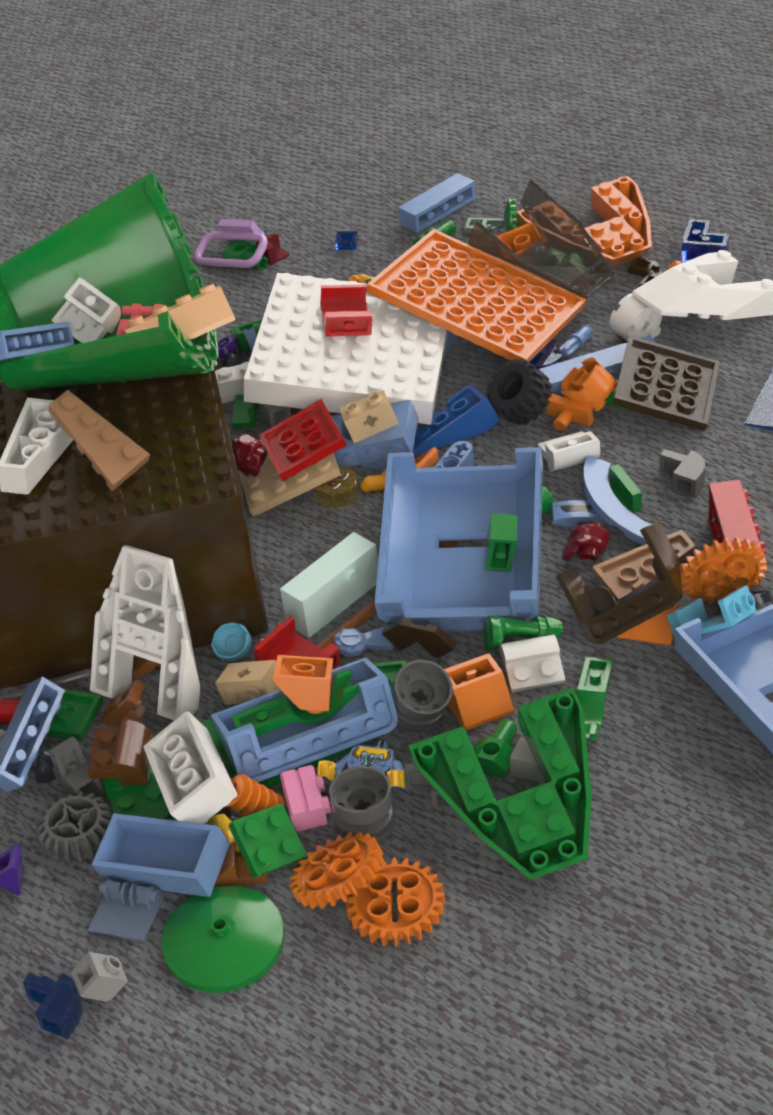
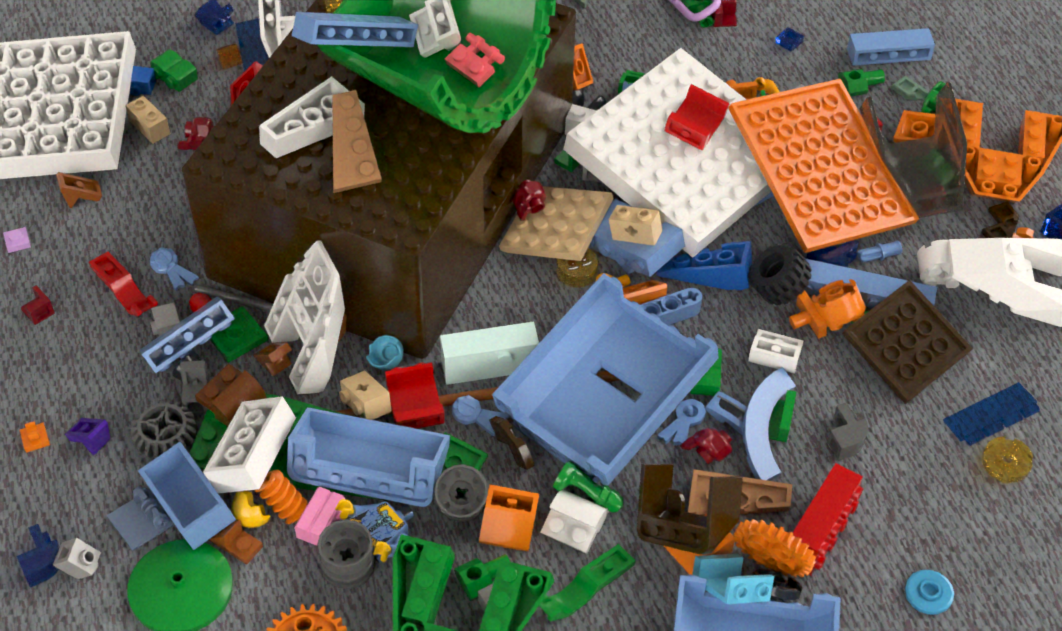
camera: 30 degrees right, 10 degrees up
(192, 315) = (490, 77): light nougat slope -> none
(226, 346) = (607, 86): dark purple plate -> none
(267, 841) = (263, 535): green plate -> none
(283, 711) = (361, 441): green piece -> none
(302, 440) = (573, 213): red plate -> none
(305, 681) = (385, 426): orange slope -> none
(336, 870) = (286, 592): orange gear -> none
(501, 542) = (628, 405): green brick -> none
(549, 534) = (688, 414): none -> medium blue piece

